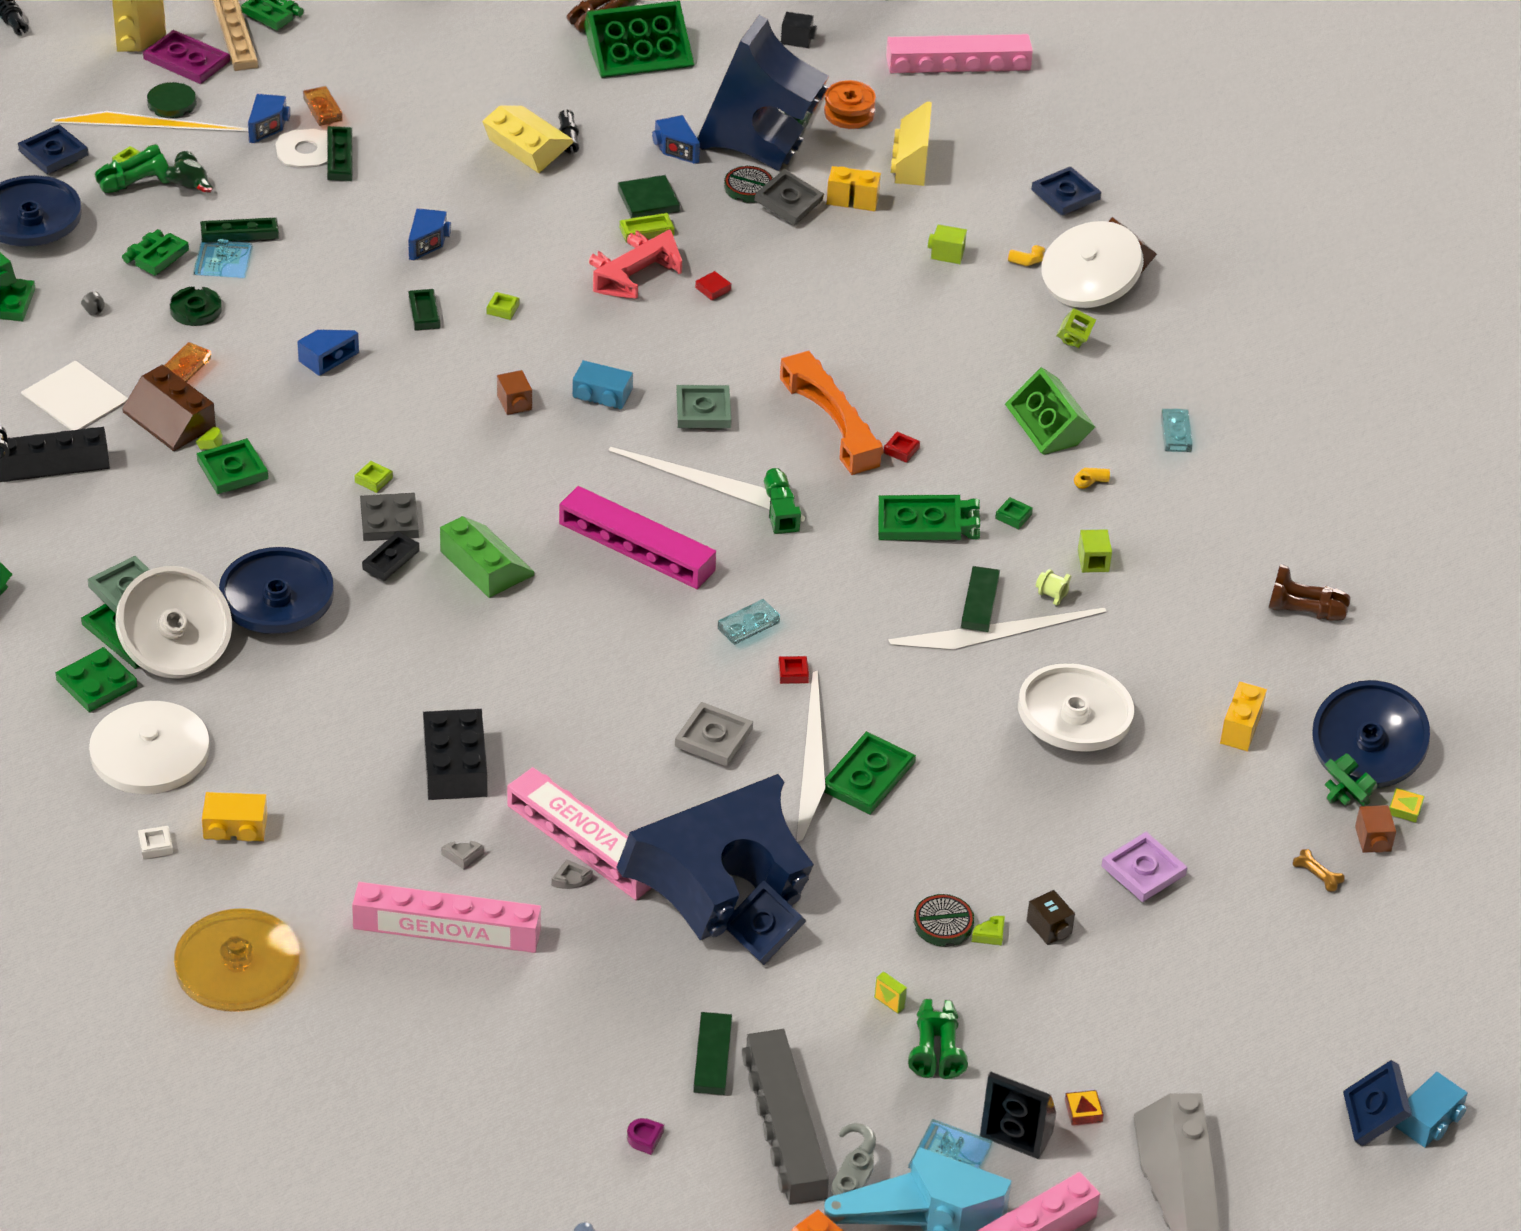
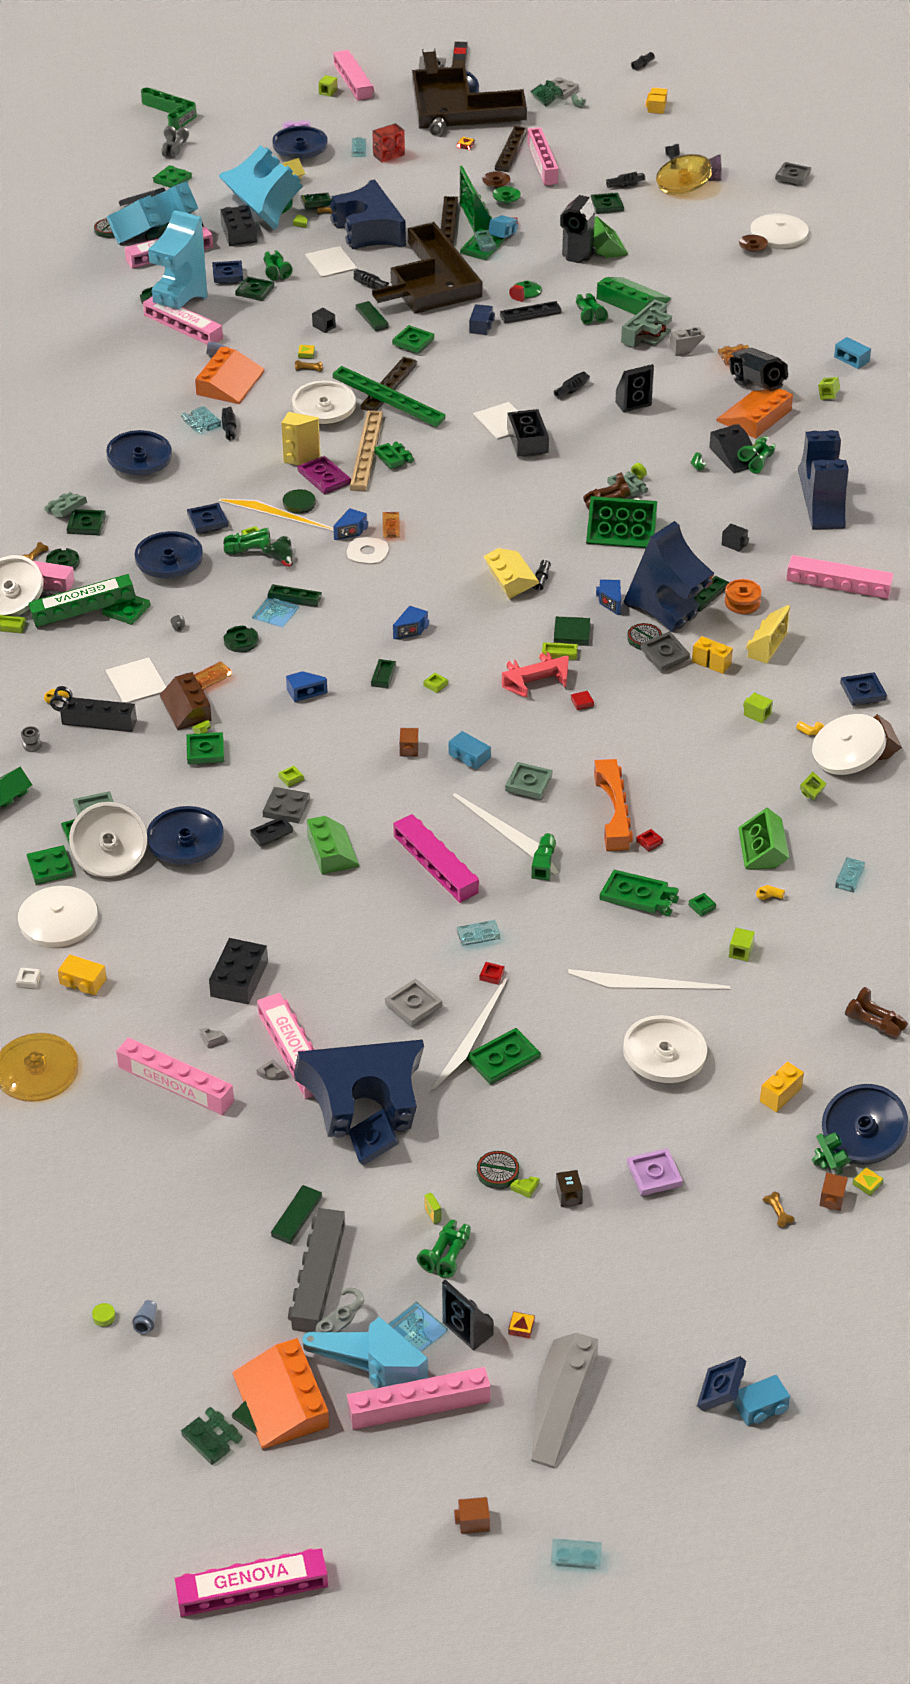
camera: 25 degrees right, 0 degrees up
(156, 251) = (234, 598): green plate -> none
(339, 153) = (385, 558): dark green tile -> none
(644, 1134) = (224, 1254): magenta tile -> none
(980, 599) = (645, 957): dark green tile -> none
(1053, 585) = (699, 961): yellowish green brick -> none

